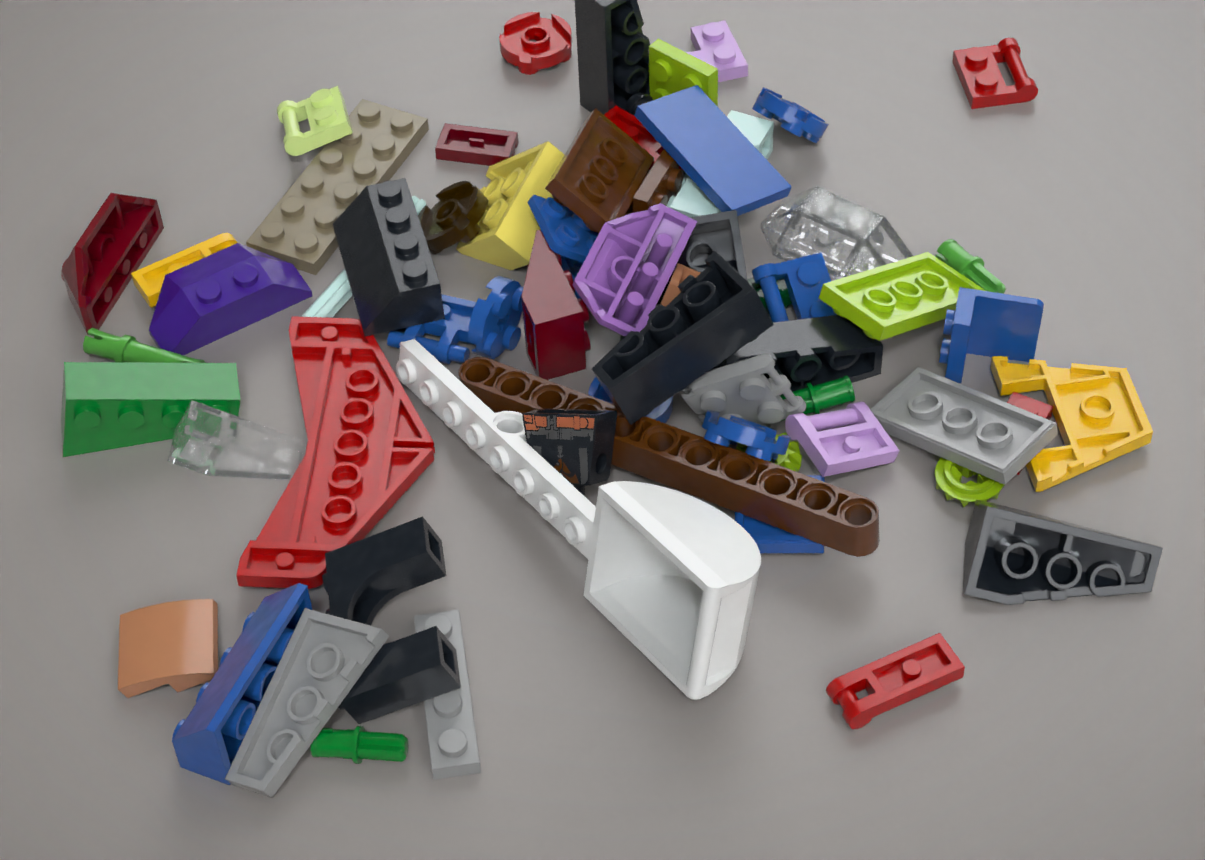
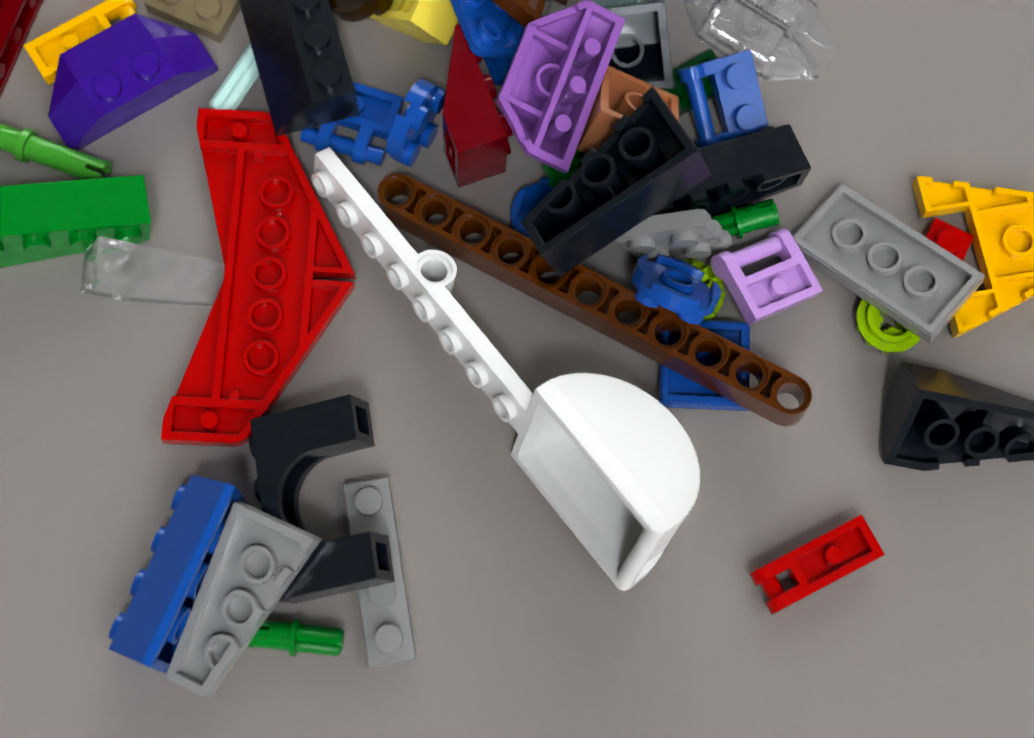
camera: 10 degrees left, 25 degrees up
(168, 645) = (97, 518): nougat slope -> none
(574, 442) = (497, 293): torso -> none
(897, 295) = (830, 104): lime plate -> none
(969, 266) = (894, 60): bright green axle -> none
(990, 327) = (916, 143): blue bracket -> none

